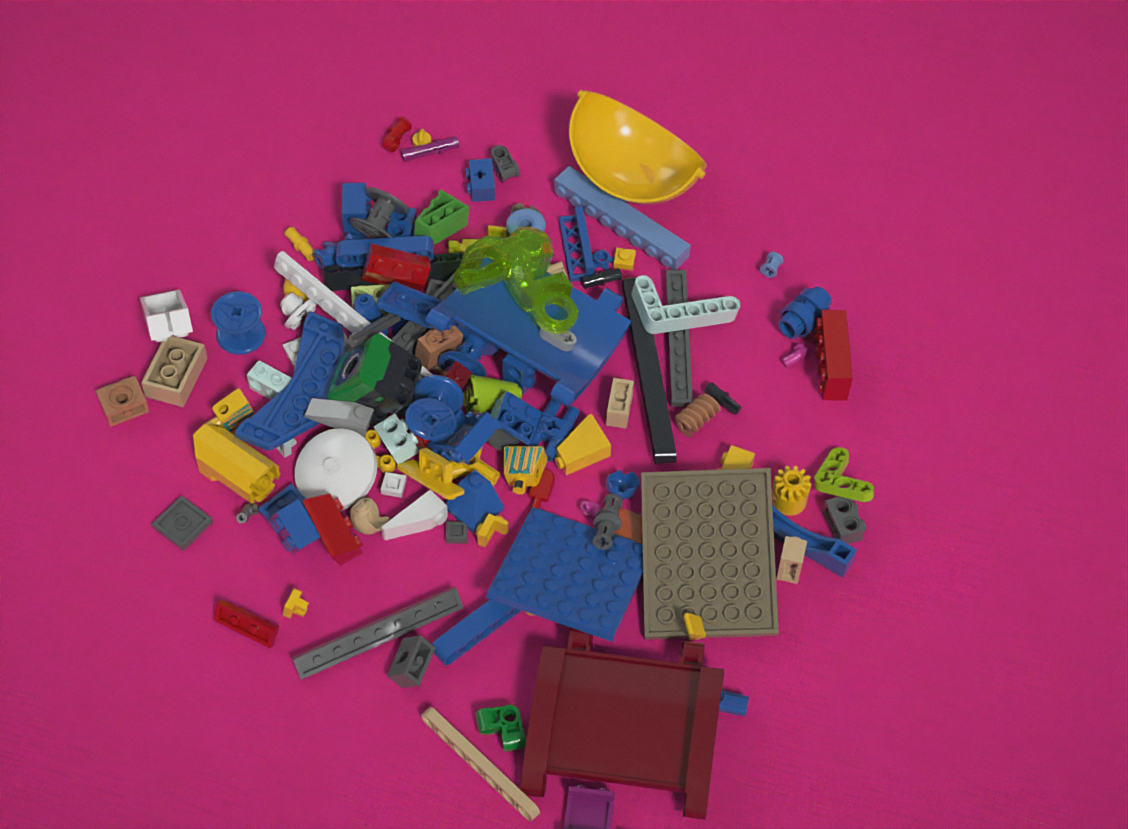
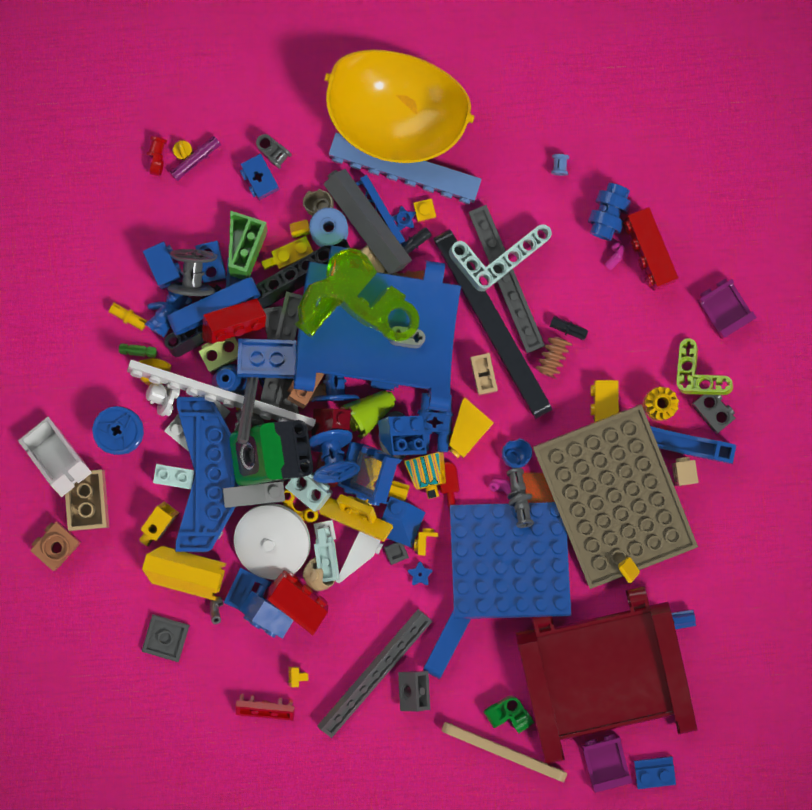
camera: 20 degrees left, 30 degrees up
(383, 499) = (326, 555): none -> light aqua hinge
(471, 565) = (420, 569): none -> blue plate
(565, 240) = (367, 221): none -> dark grey brick
(891, 436) = (726, 308): none -> magenta panel

